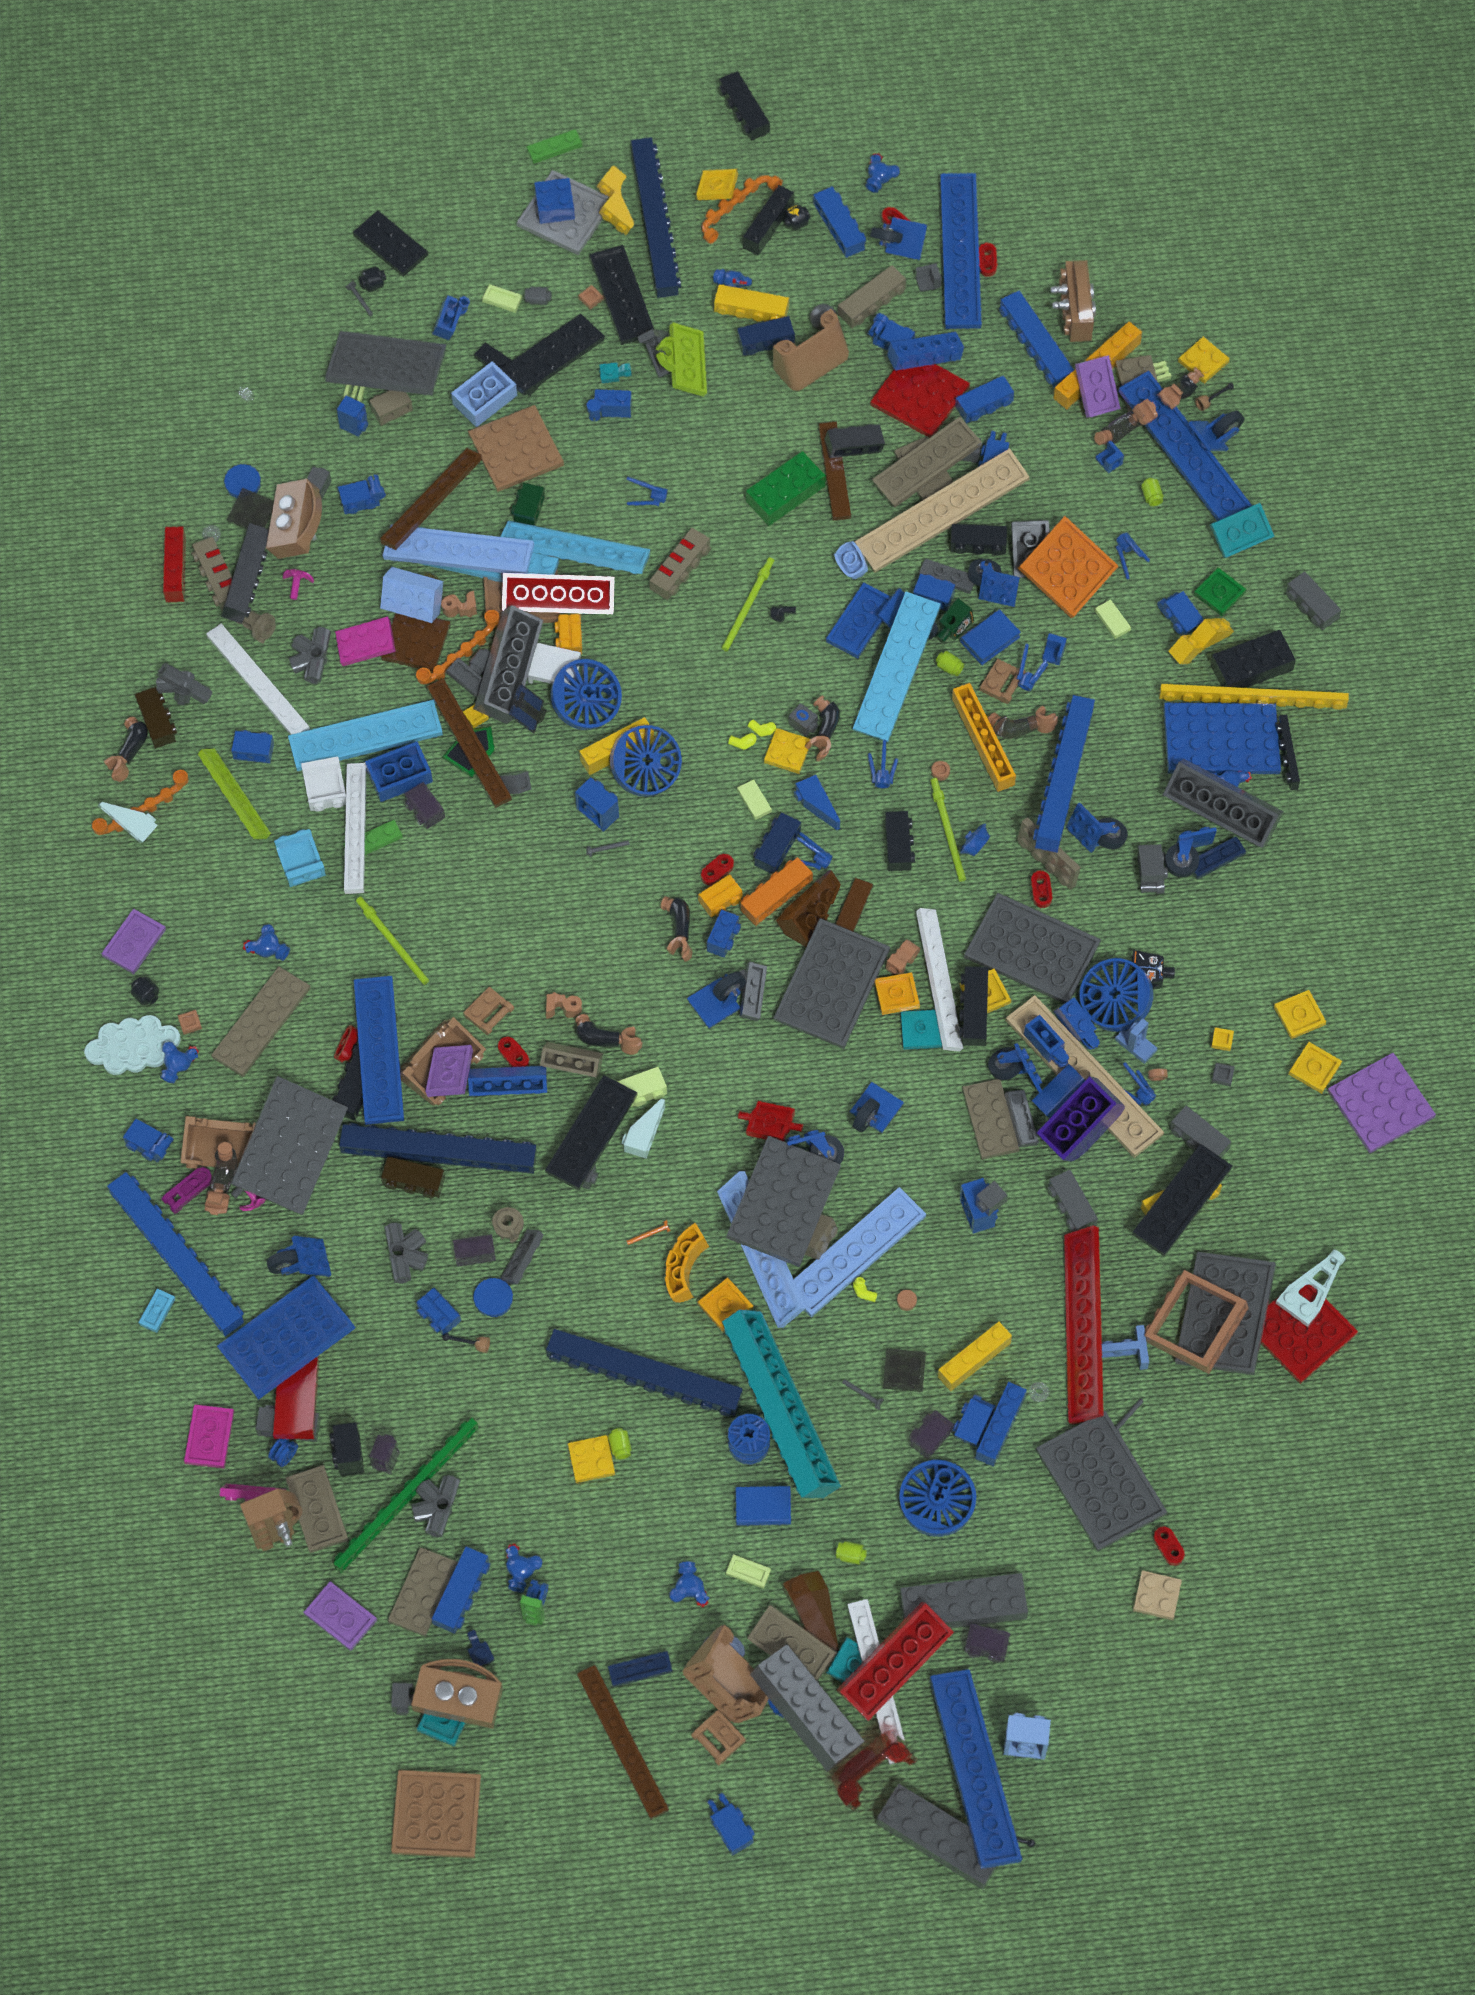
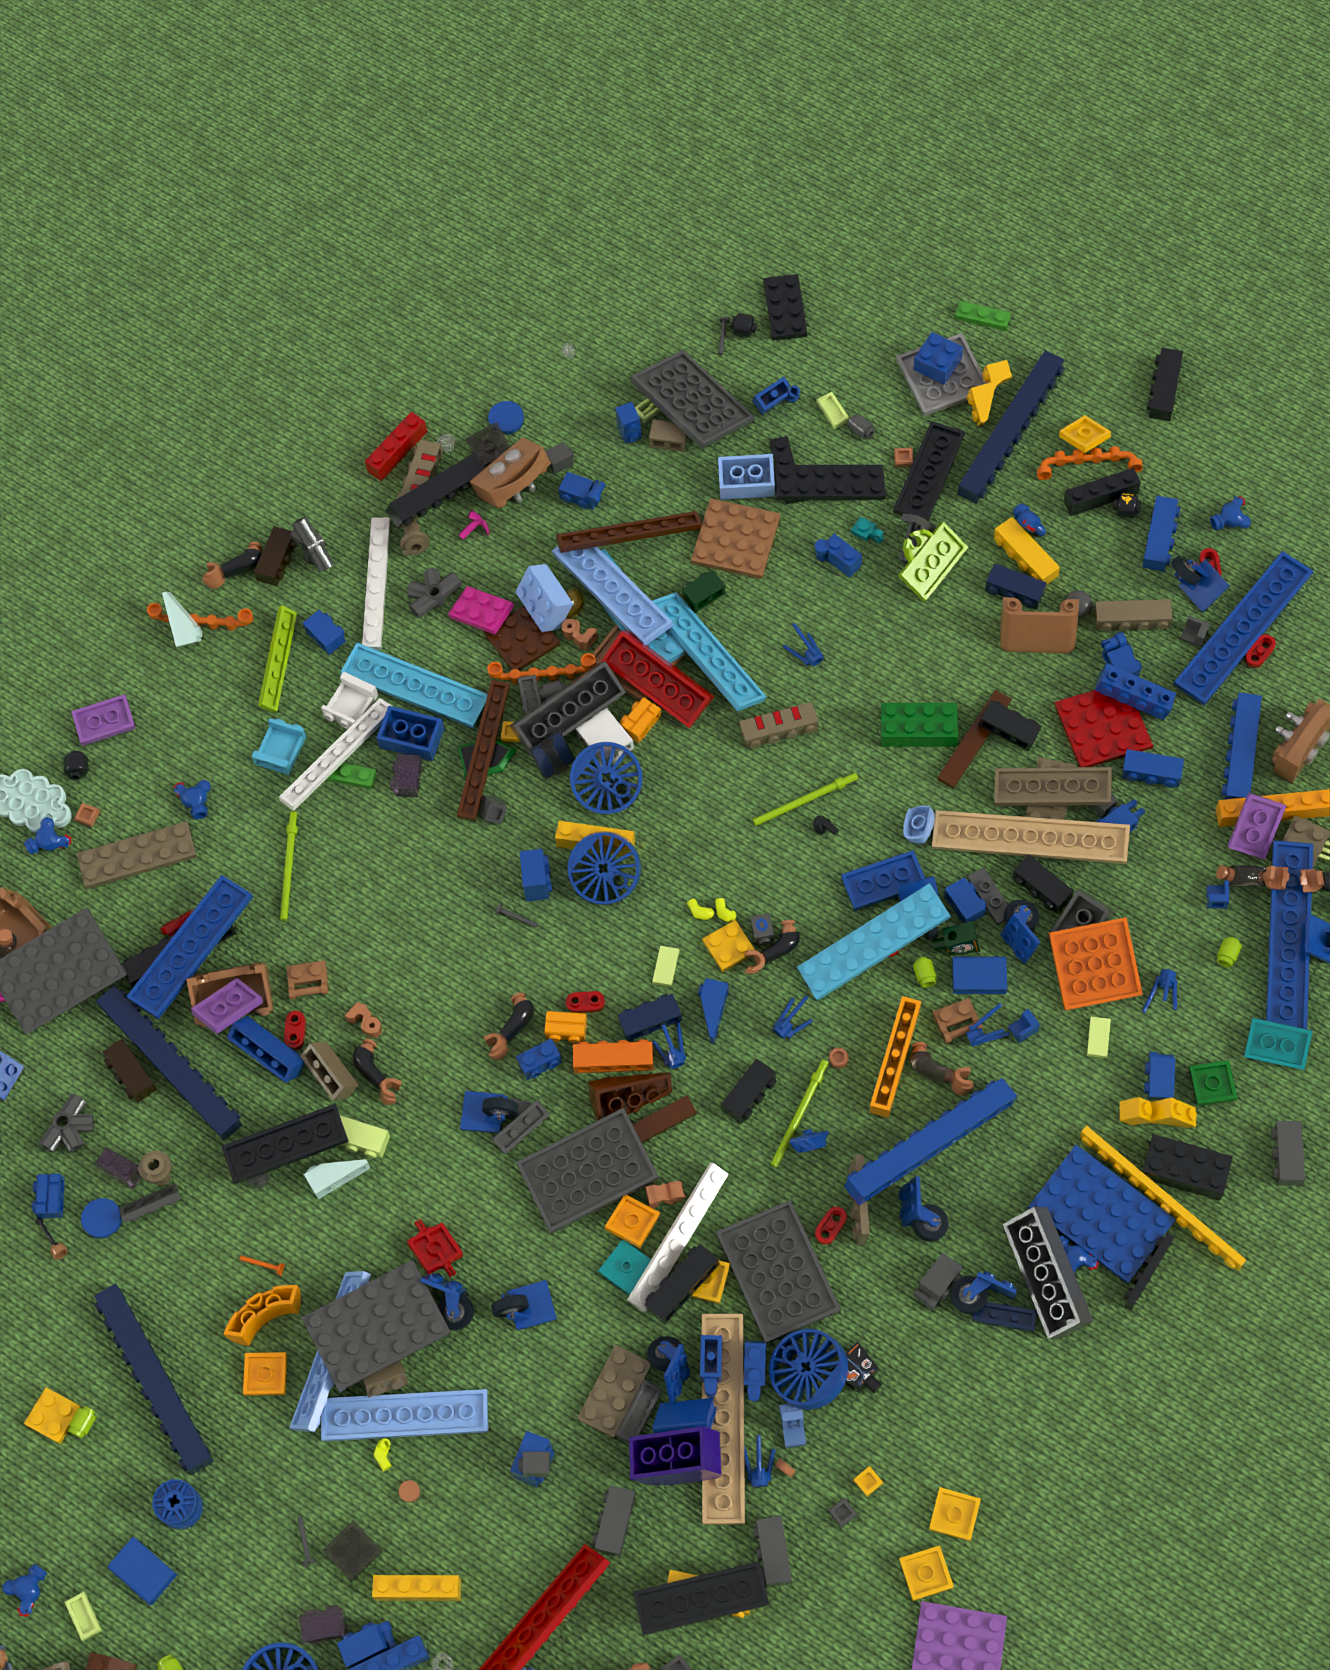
camera: 45 degrees right, 0 degrees up
(781, 1404) = (225, 1498): teal brick -> none

